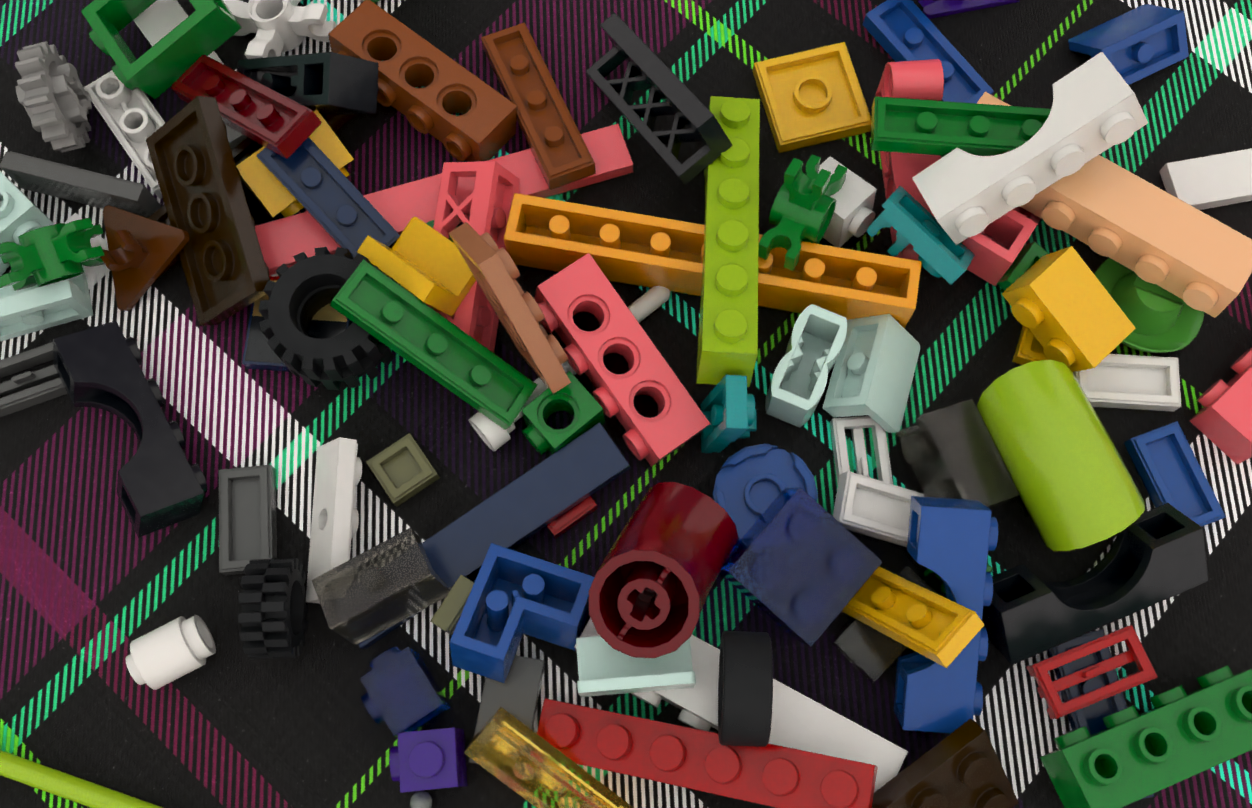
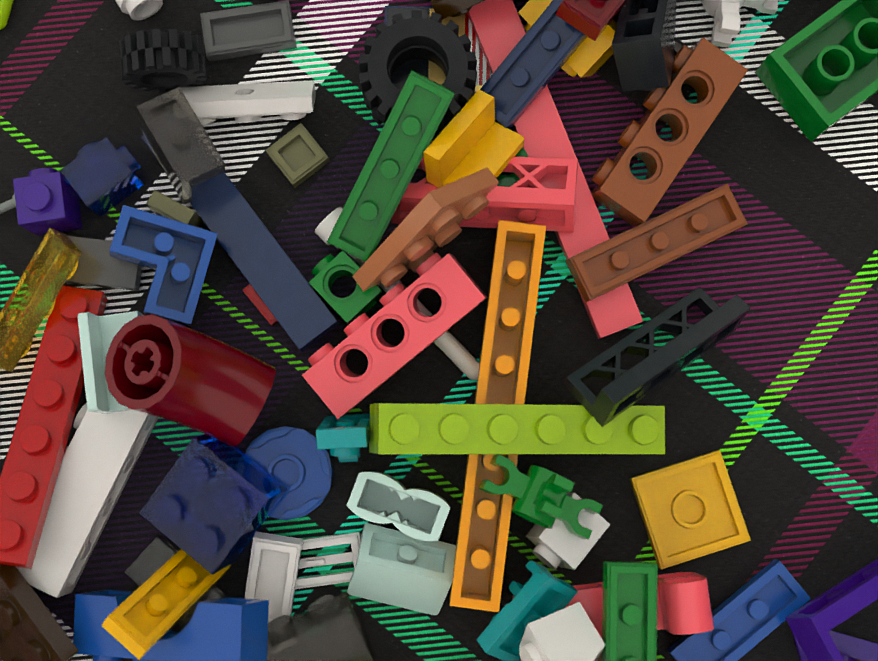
camera: 85 degrees right, 10 degrees up
(745, 688) = (88, 452): black tyre -> none

